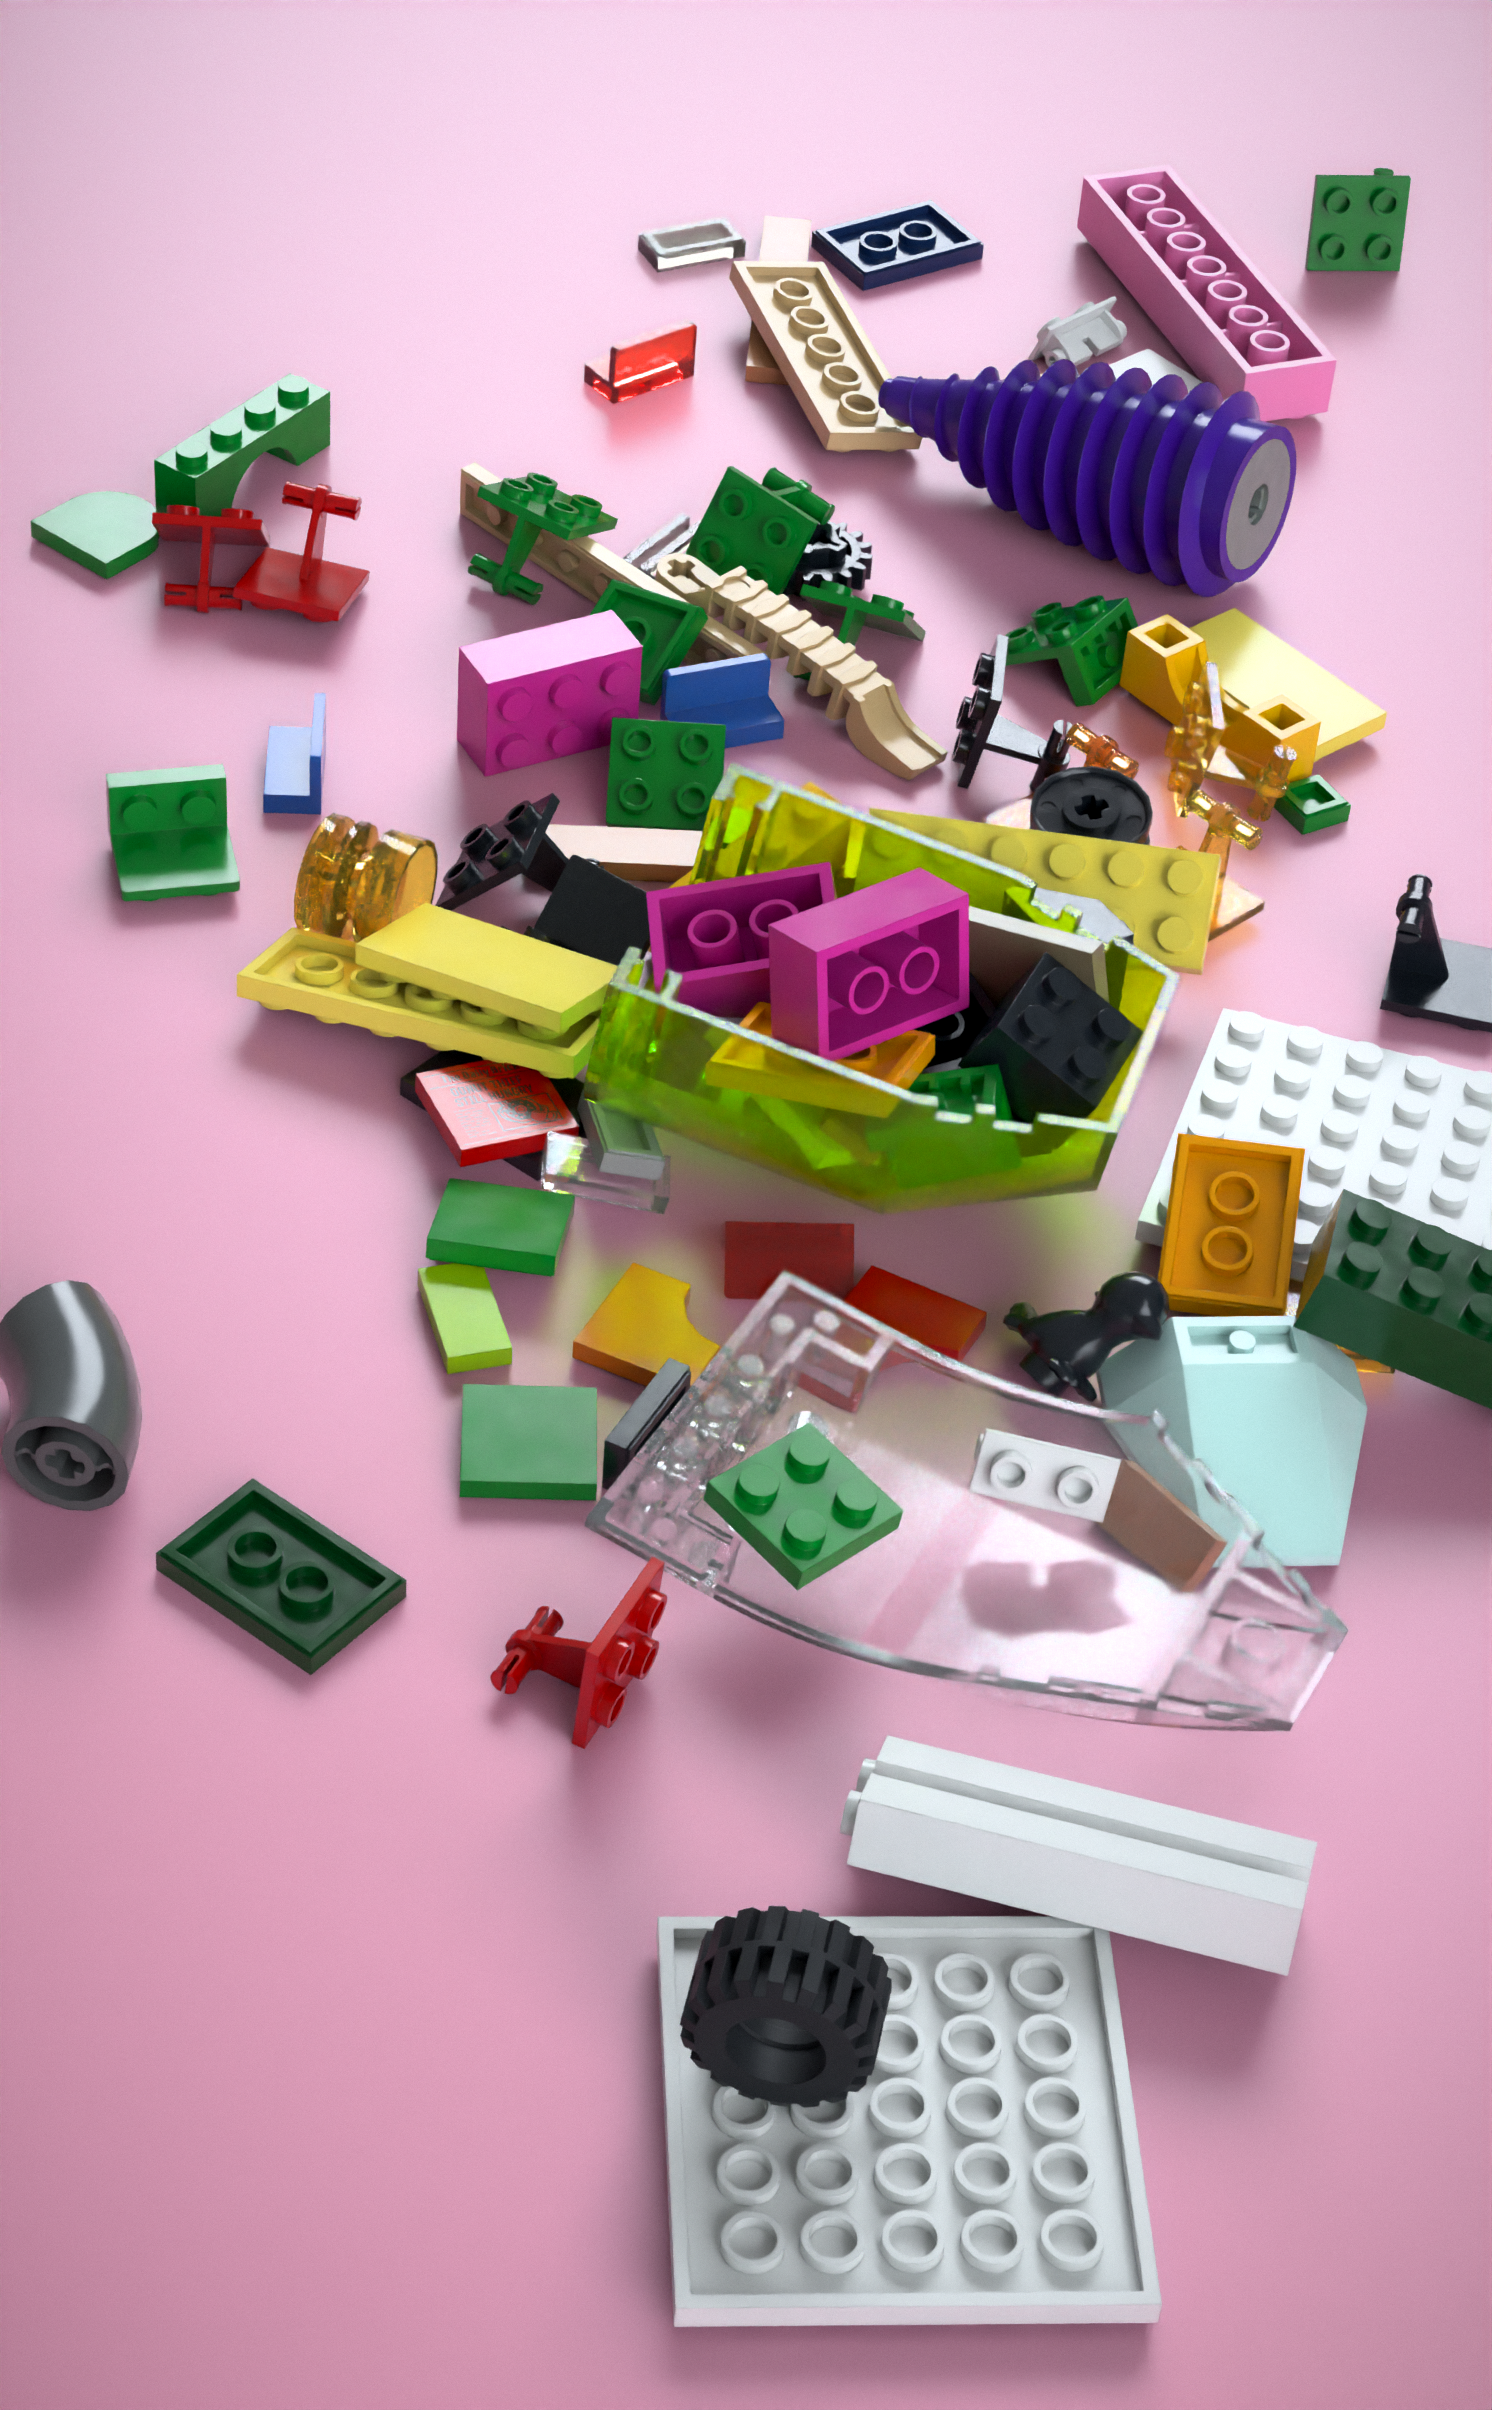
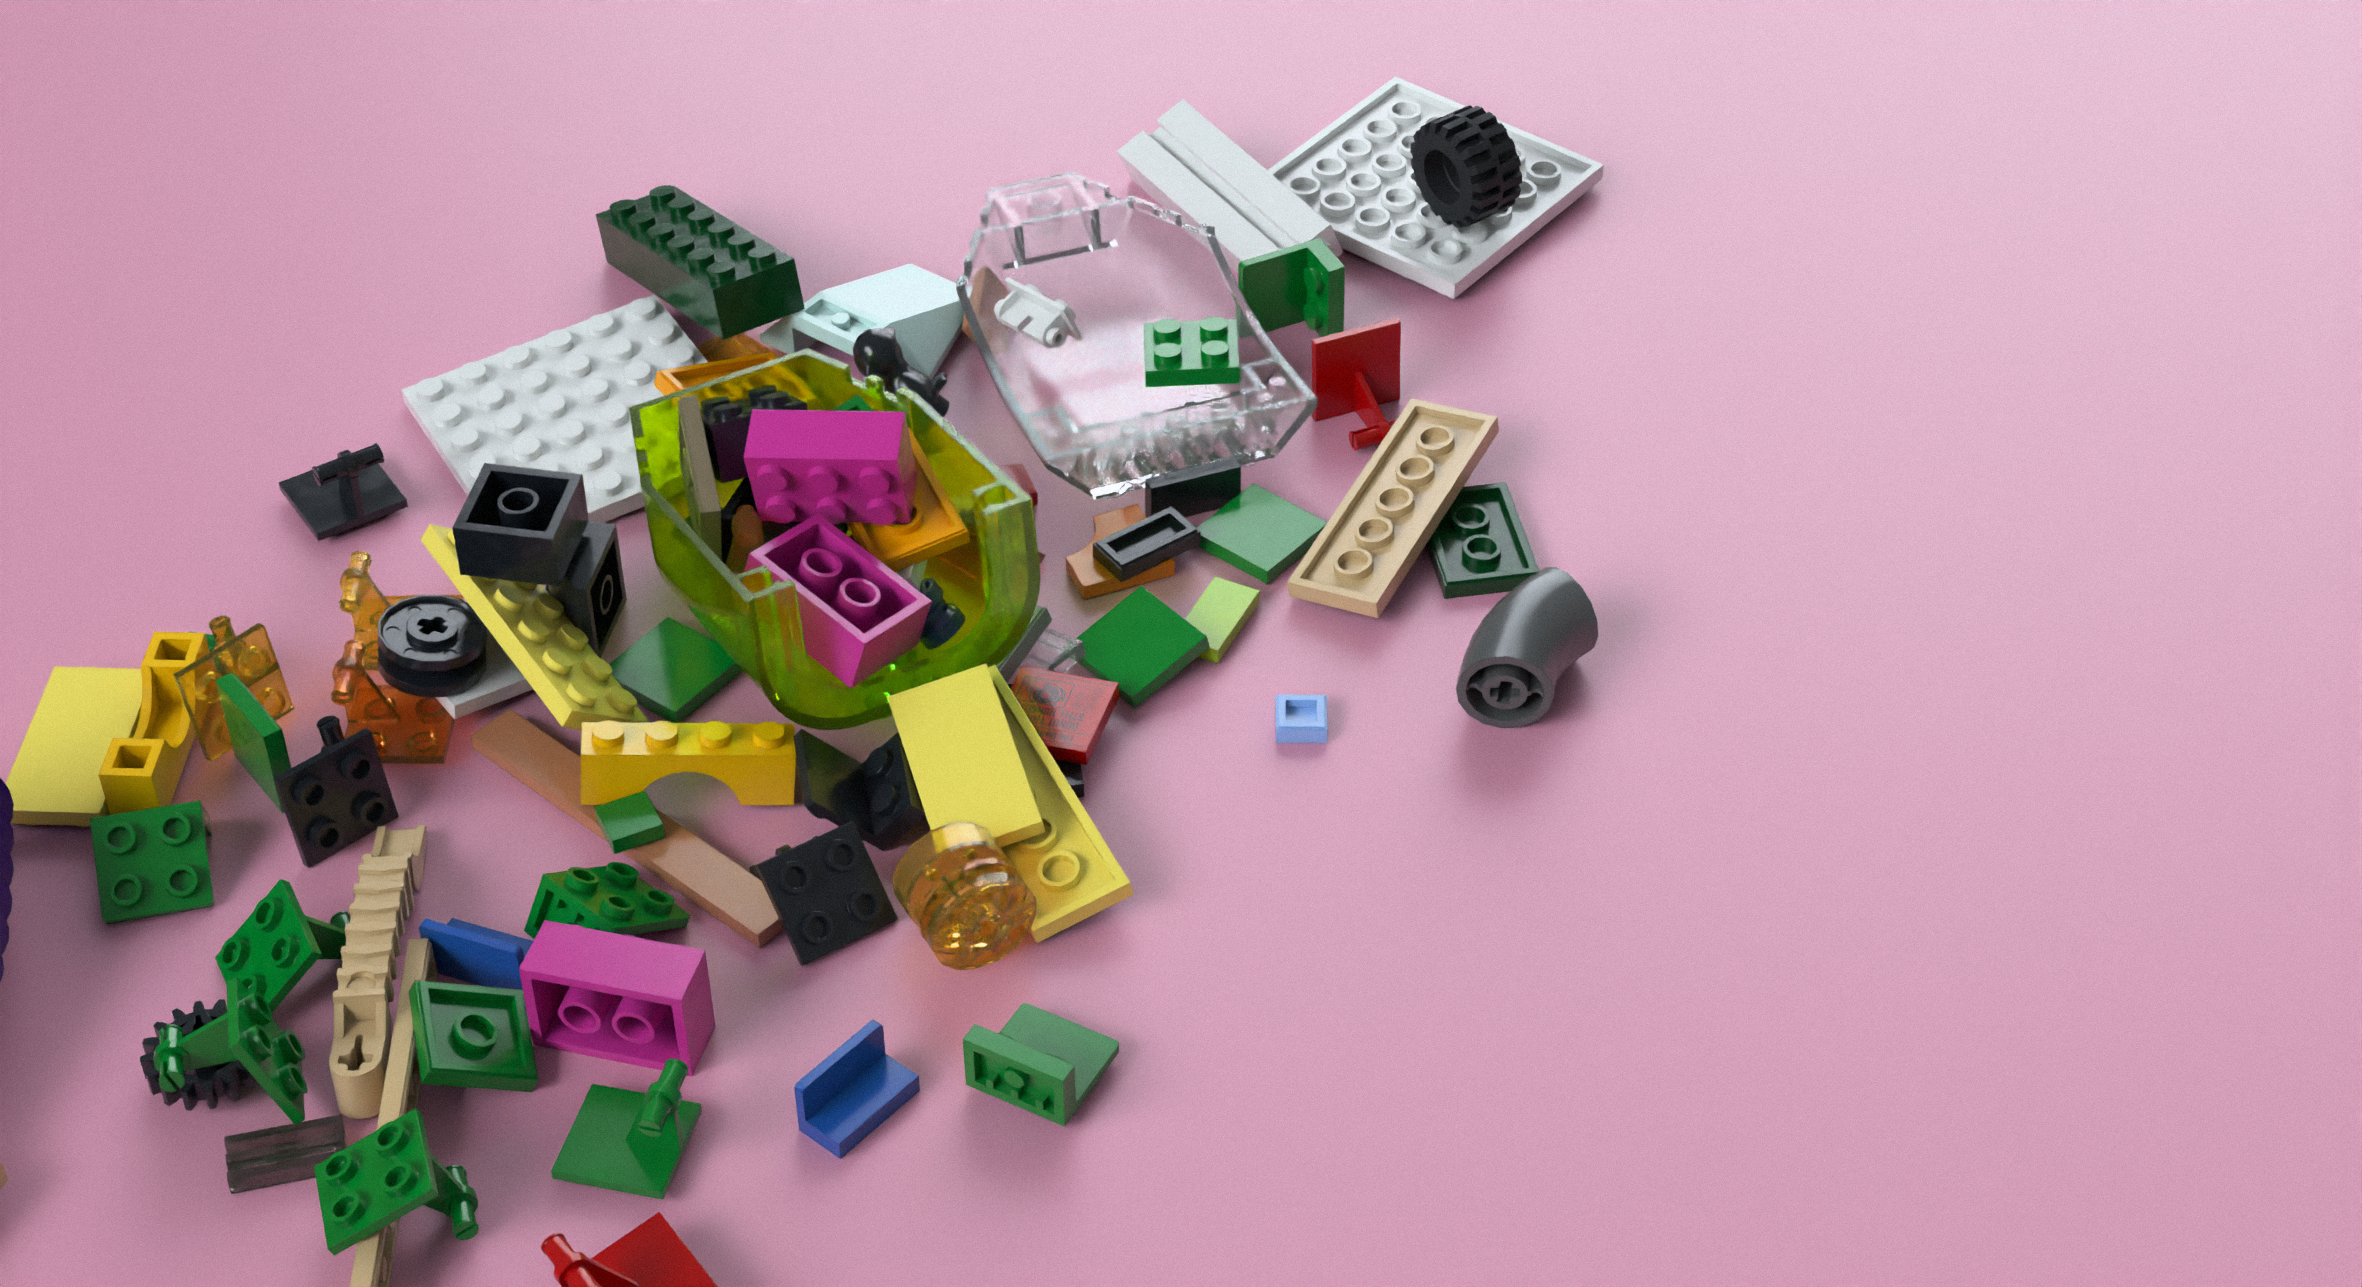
camera: 135 degrees left, 0 degrees up
(265, 1261) = (1301, 718): none -> light blue tile
(395, 1521) = (1393, 508): none -> tan plate
(417, 657) = (630, 1137): none -> green plate
(616, 1329) = (1146, 544): none -> black tile
(802, 1750) = (1296, 287): none -> green bracket
(1110, 848) = (521, 524): none -> black brick
(1117, 702) = (253, 735): none -> green tile

